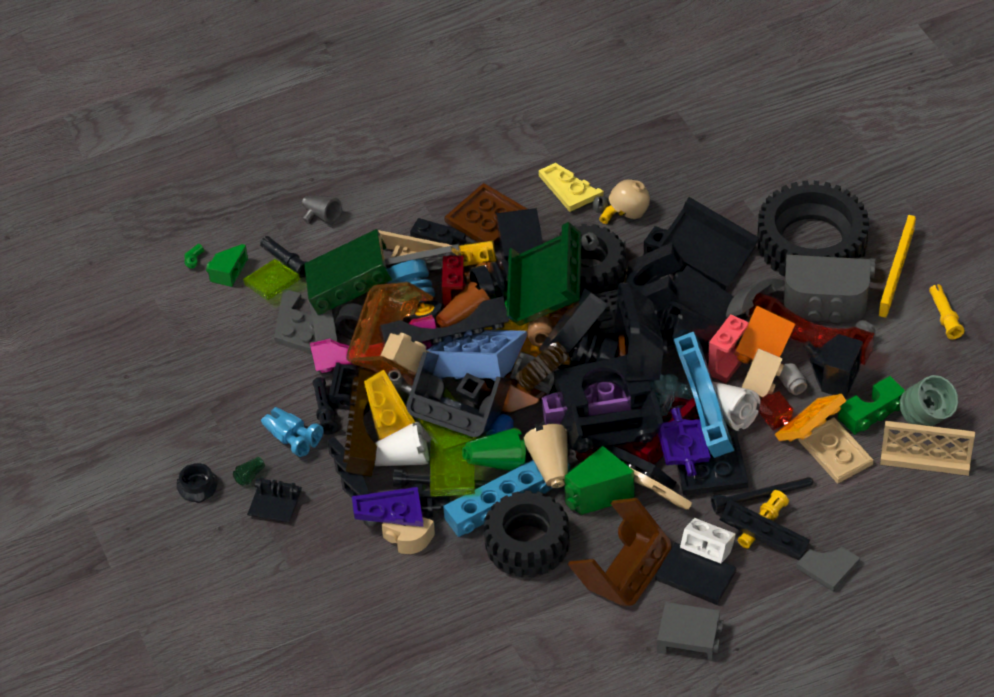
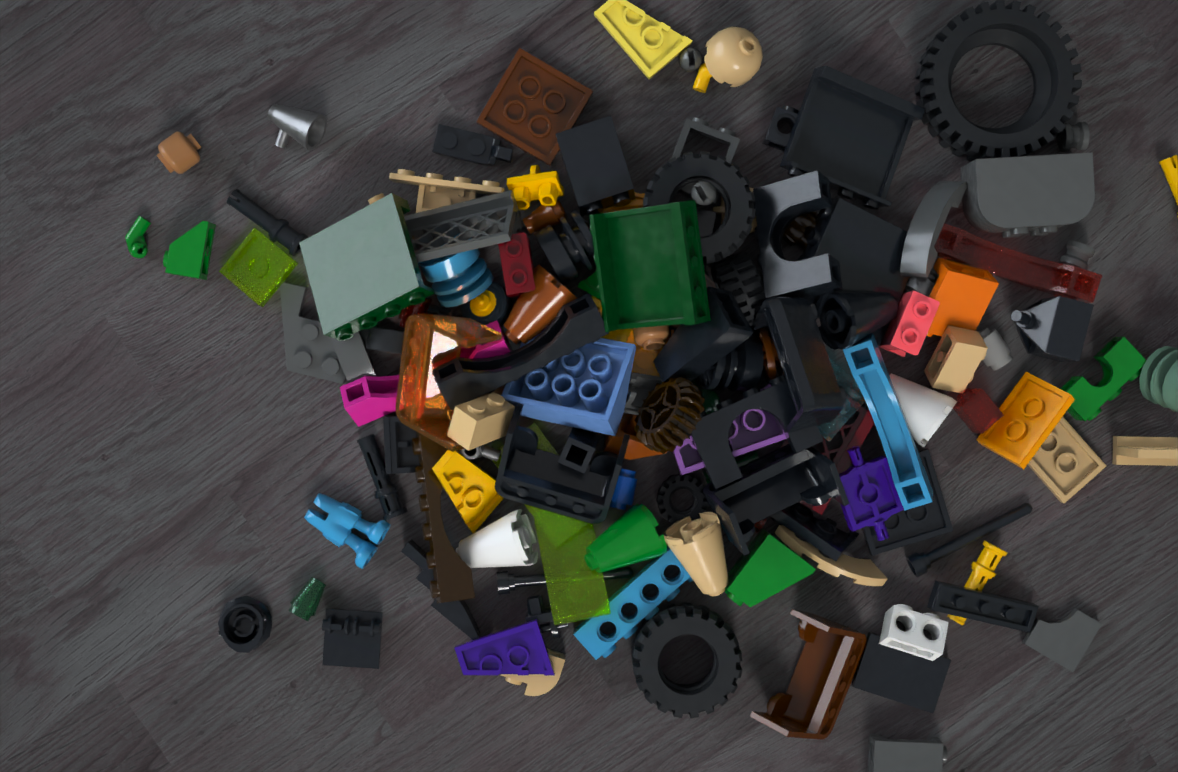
camera: 10 degrees left, 40 degrees up
(236, 212) = (179, 152): none -> medium nougat head
(897, 266) = (1115, 125): yellow tile -> none

